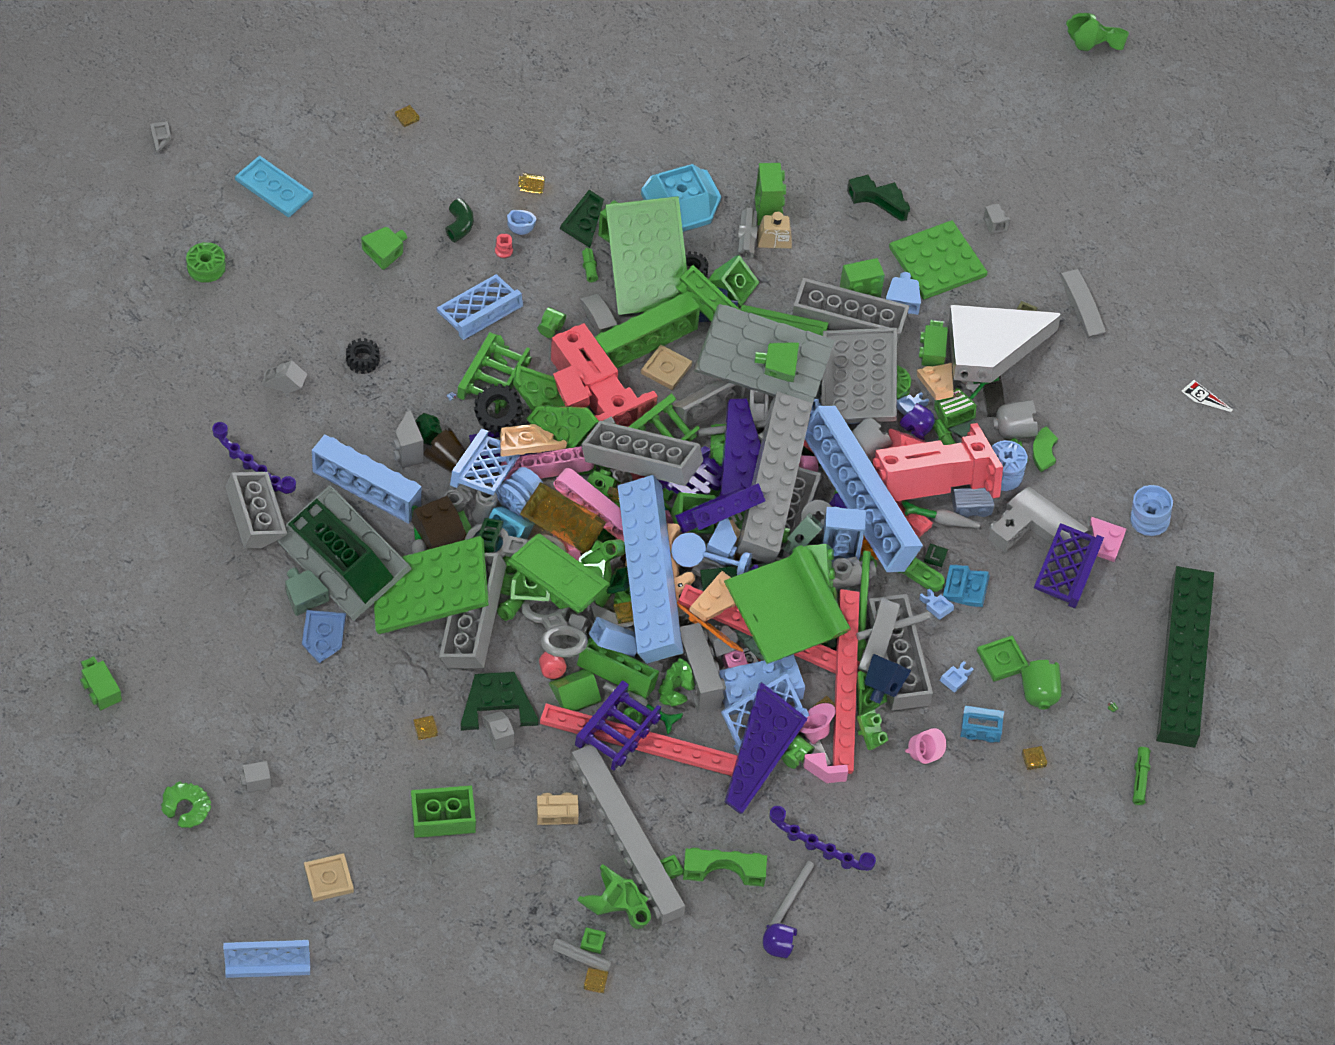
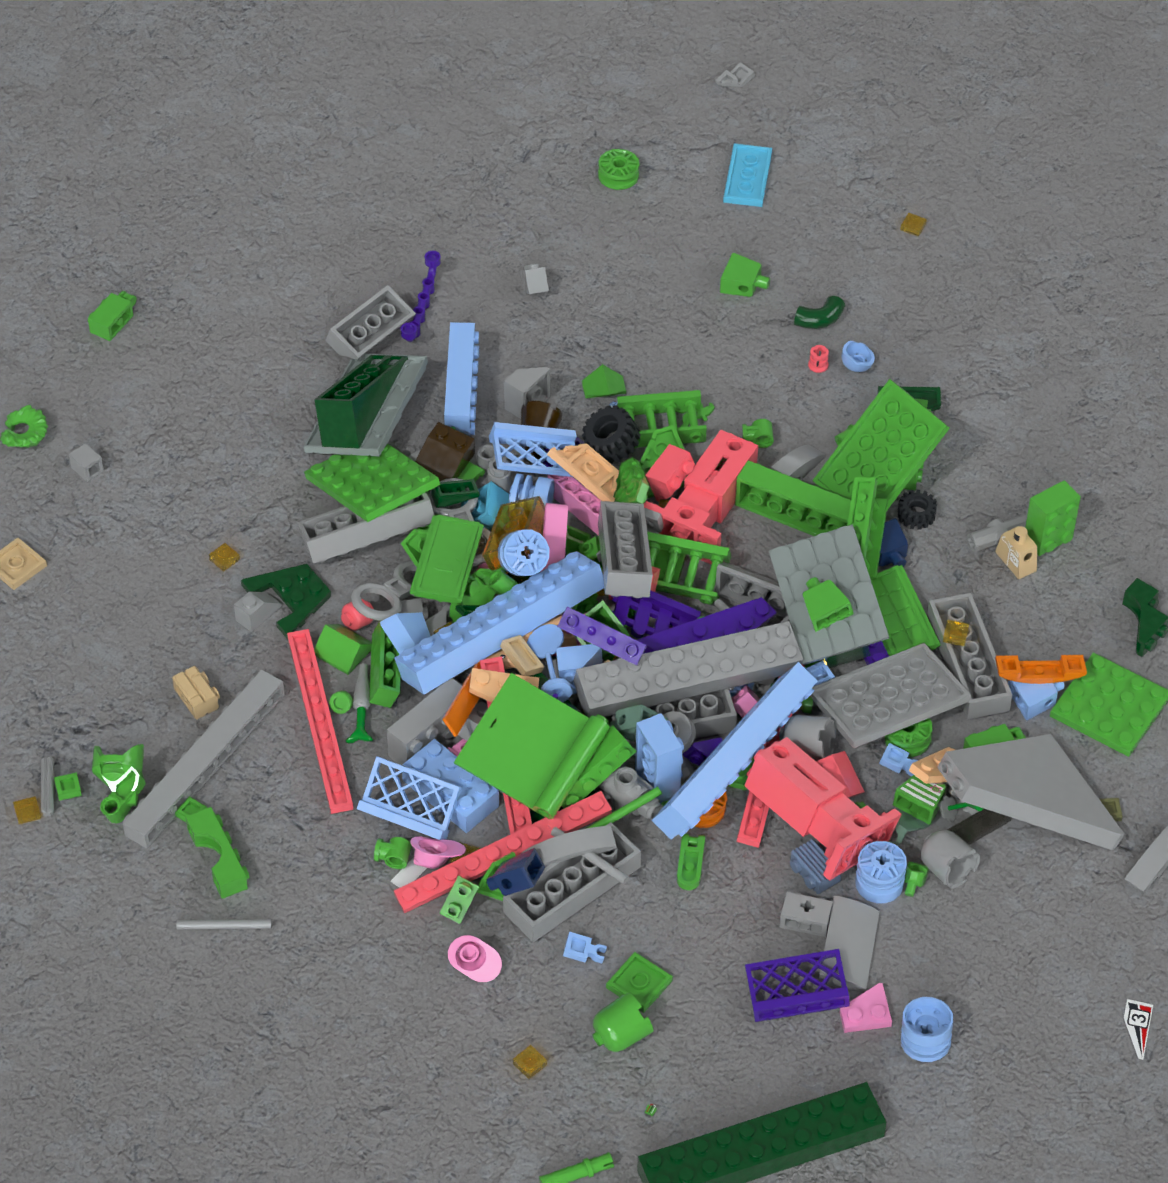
camera: 65 degrees right, 5 degrees down
(305, 591) = (300, 401): sand green torso -> none
(323, 633) = (275, 438): medium blue tile -> none
(362, 364) = (604, 312): black tyre -> none
(429, 392) = (603, 383): none -> bright green slope
(429, 427) = (557, 396): dark green brick -> none
(443, 811) = (132, 606): bright green brick -> none
(488, 313) = (732, 384): light blue fence -> none
(509, 608) = (397, 554): bright green cone -> none
(532, 183) = (912, 345): clear yellow brick -> none
(605, 516) = (510, 552): none -> light blue wheel
(609, 708) = (314, 671): dark purple fence -> none
(666, 367) = (774, 537): tan tile -> none
(678, 674) = (381, 722): bright green piece -> none
(693, 571) = (522, 656): none -> tan tile
(696, 193) = (996, 462): medium azure piece -> none
(735, 278) = (929, 548): bright green slope -> none
(766, 738) = (378, 812): dark purple wing -> none
(778, 940) = (153, 926): dark purple helmet -> none
(817, 765) = (389, 878): bright pink slope -> none
(838, 305) = (956, 633): none -> clear yellow plate
(863, 277) = (1013, 637): bright green brick -> none
(866, 861) = (291, 958): dark purple bar -> none
(899, 275) = (1041, 672): none -> orange slope
(919, 420) = (877, 772): dark purple helmet -> none
(935, 555) = (725, 866): dark green tile -> none
(938, 606) = (661, 893): light blue plate -> none
(941, 516) = (773, 846): light grey piece -> none
(943, 433) = (885, 801): bright green axle -> none
(966, 586) = (706, 909): dark azure slope -> none
(982, 724) = (537, 996): dark azure window -> none
(1042, 449) = (938, 902): bright green tile -> none

